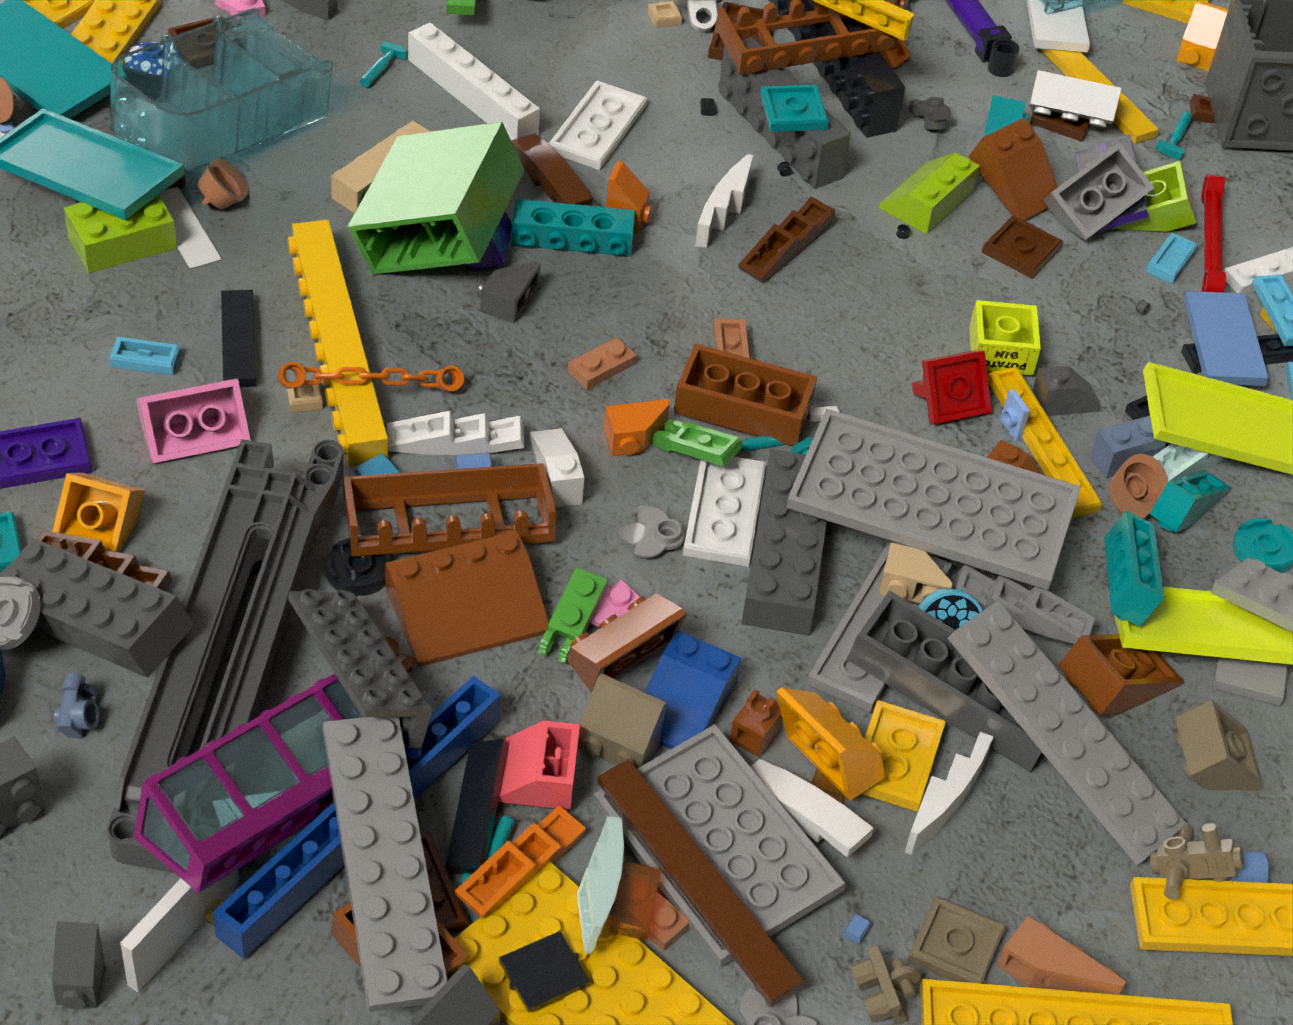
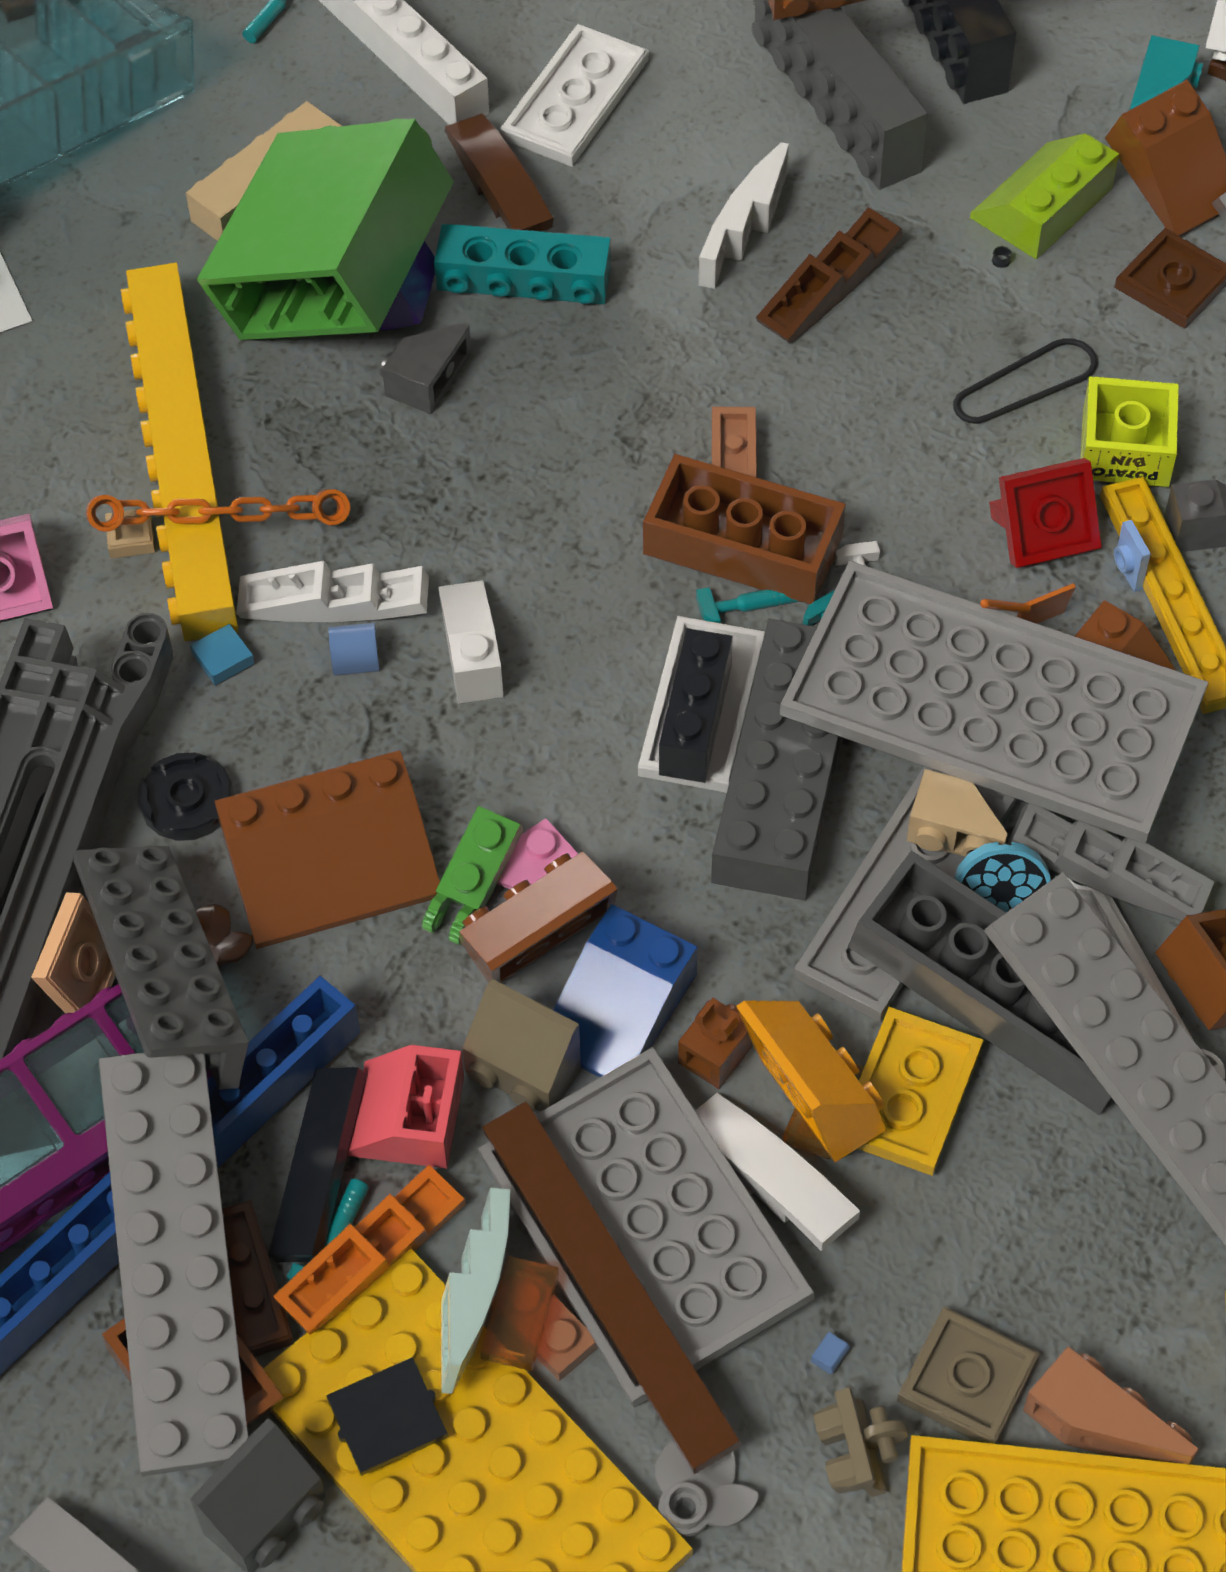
camera: 10 degrees right, 10 degrees up
(222, 184) = (38, 206): nougat piece -> none
(238, 337) = (45, 445): black tile -> none
(293, 662) = (74, 958): none -> light nougat tile
(446, 487) = (308, 678): dark orange window -> none
(602, 363) = (548, 476): nougat plate -> none
(628, 193) = (602, 212): orange slope -> none
(632, 425) = (585, 577): orange slope -> none
(652, 533) = (590, 745): light grey plate -> none
(697, 442) = (669, 603): bright green hinge -> none
(707, 106) = (734, 60): black piece -> none
(723, 505) = (695, 705): none -> black brick
(786, 172) = (838, 164): black piece -> none
(793, 108) = (847, 74): teal tile -> none
(928, 321) = (1064, 341): none -> black piece
(933, 111) = (1062, 60): dark grey plate -> none
(945, 797) = (972, 1158): white slope -> none
(962, 442) = (1036, 609): none -> orange piece

